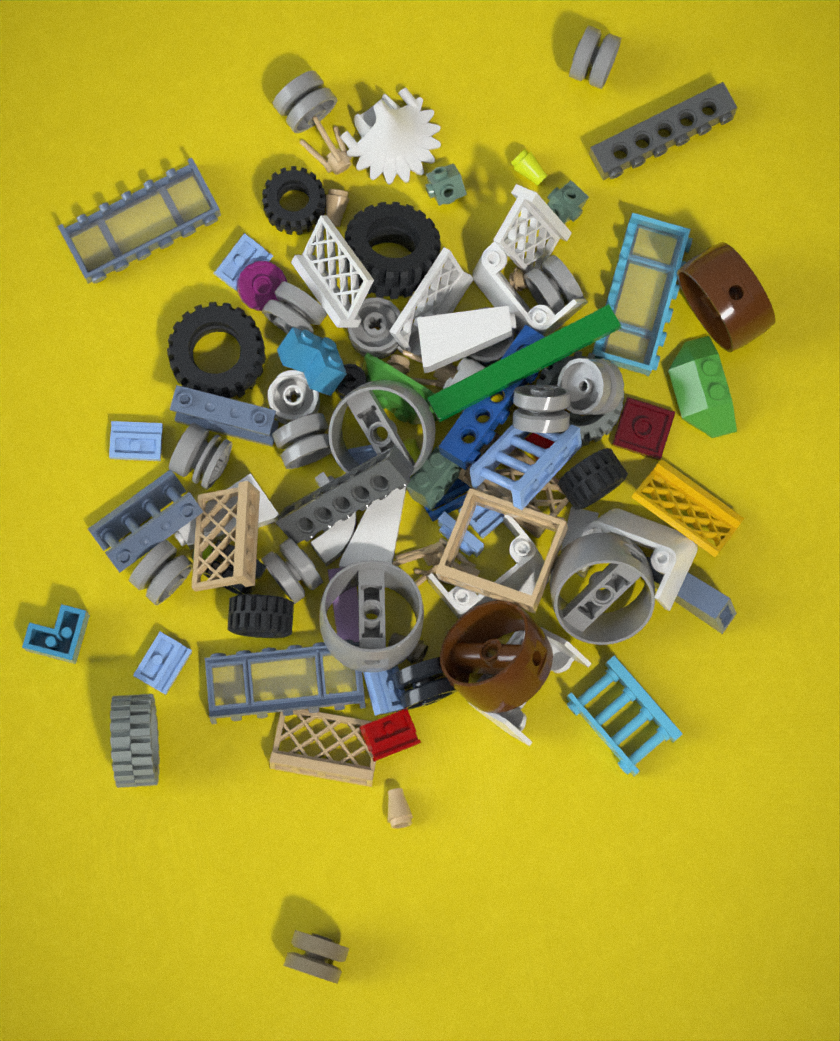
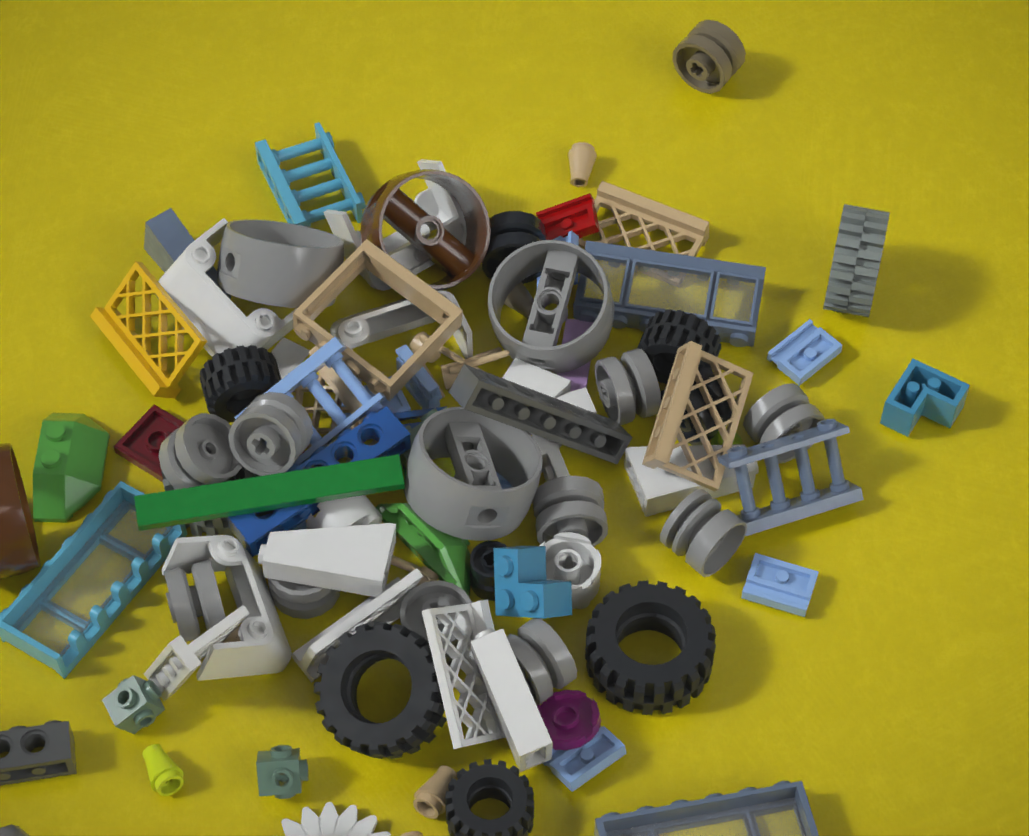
camera: 165 degrees left, 25 degrees down
(224, 415) = (638, 540): sand blue fence -> none
(296, 258) = (511, 699): none -> white slope

